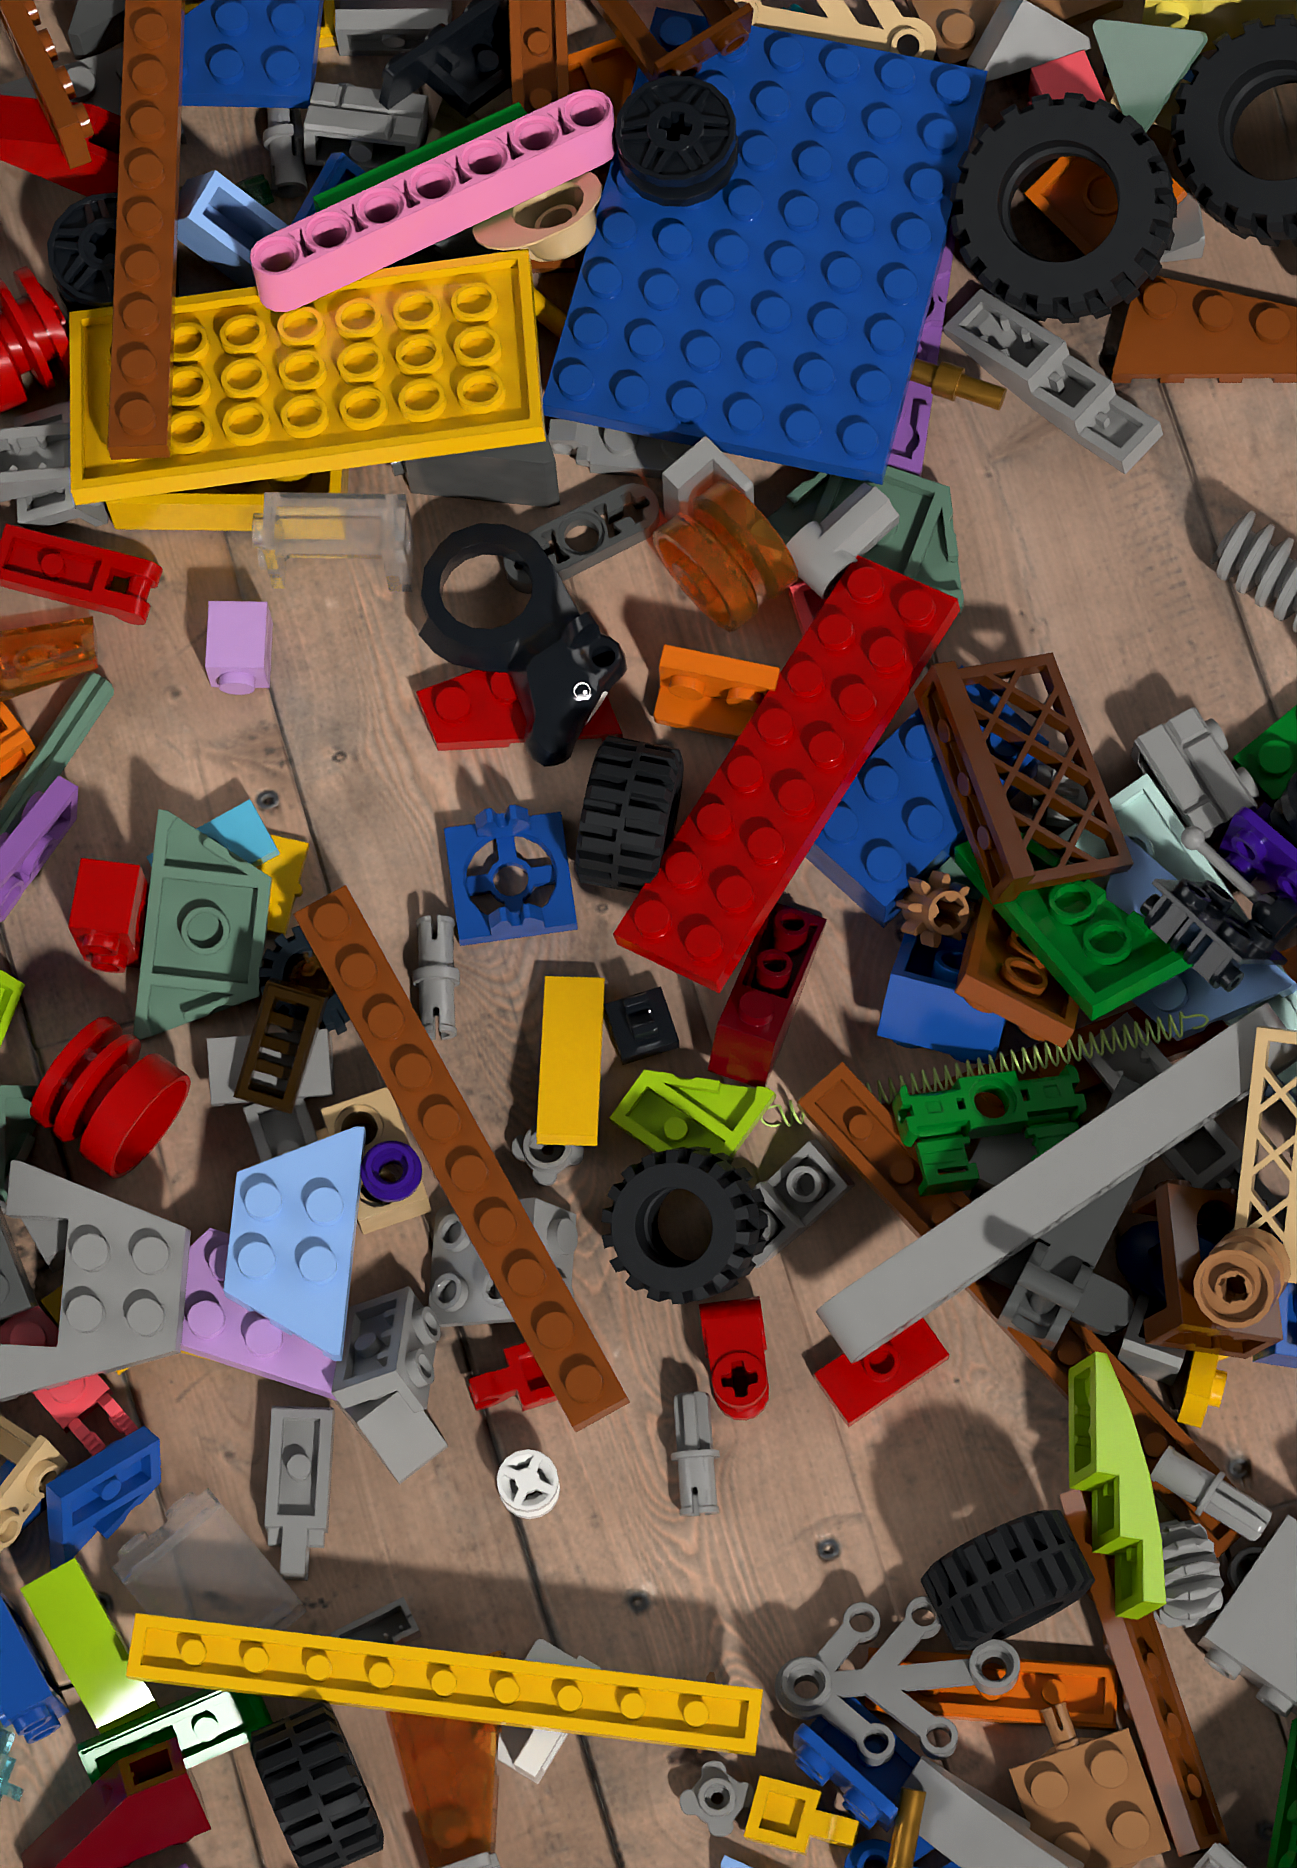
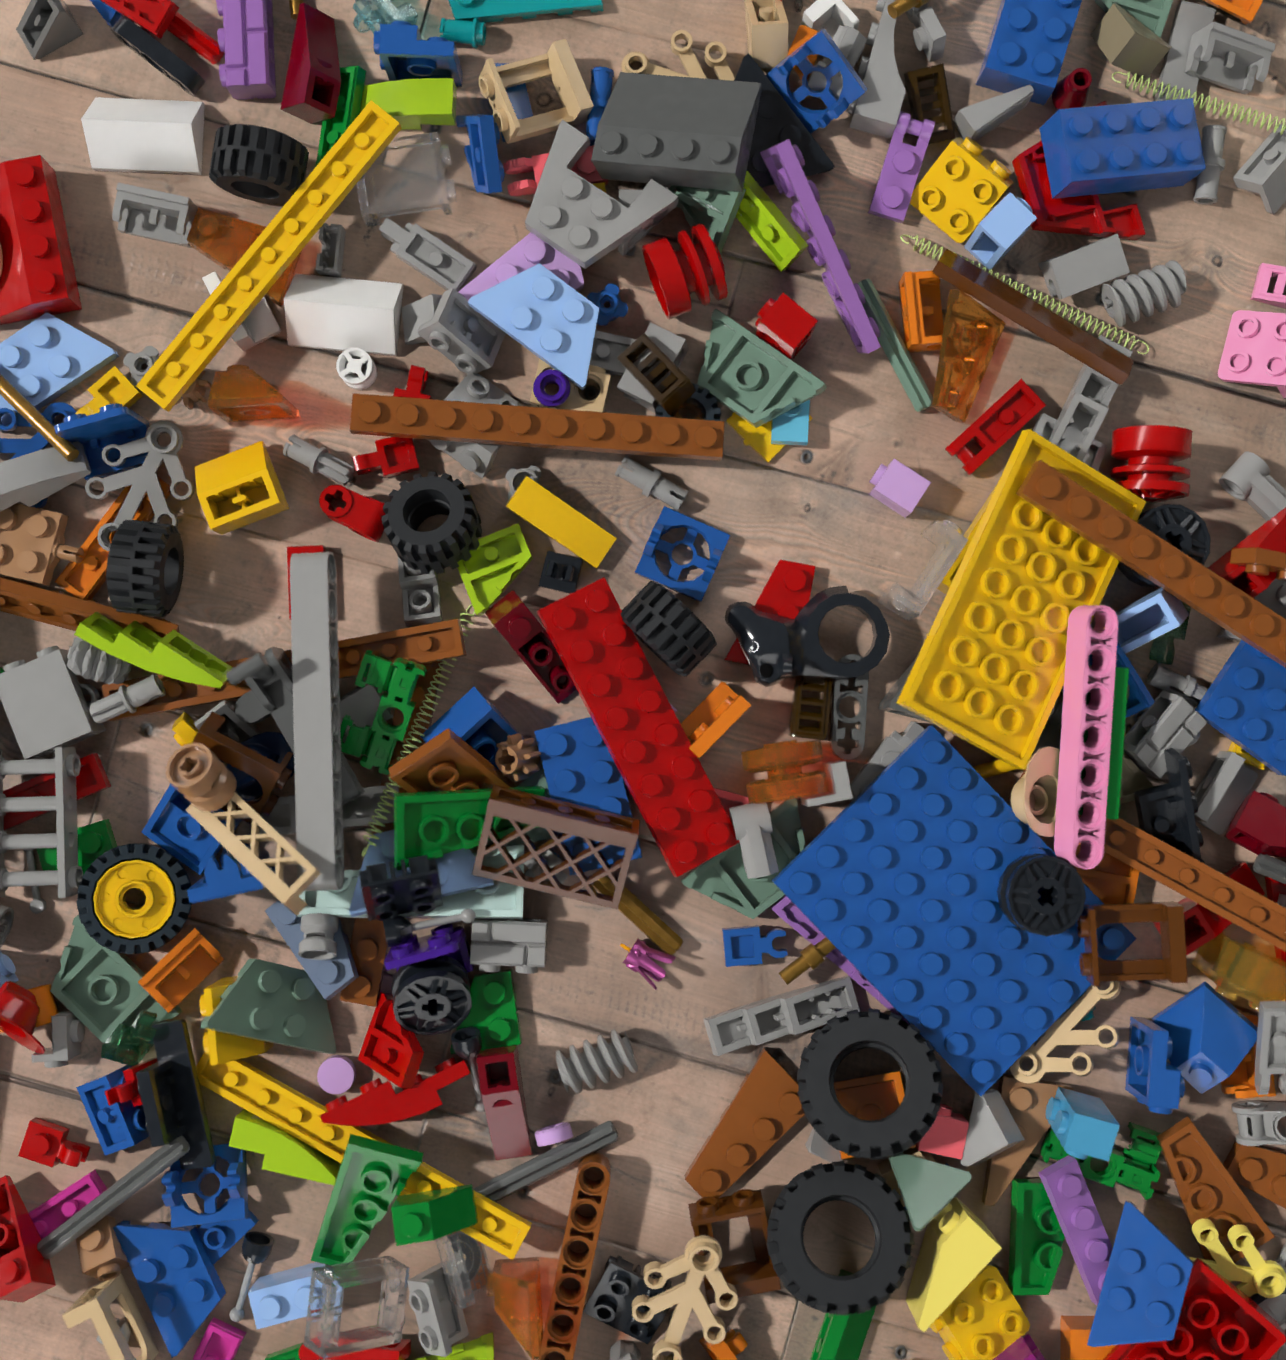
camera: 115 degrees right, 15 degrees up
(200, 1192) = (616, 309): none -> blue plate
(456, 1554) = (343, 314): none -> white slope
(621, 560) = (796, 714): none -> dark brown slope
(631, 1354) = (393, 455): none -> red plate
(665, 1604) = (246, 396): none -> clear orange slope
(805, 1538) = (239, 488): none -> yellow slope
(989, 477) = (746, 946): none -> blue plate
(1044, 624) = (642, 917): none -> pearl gold axle
(1103, 601) = (639, 961): none -> flat silver piece

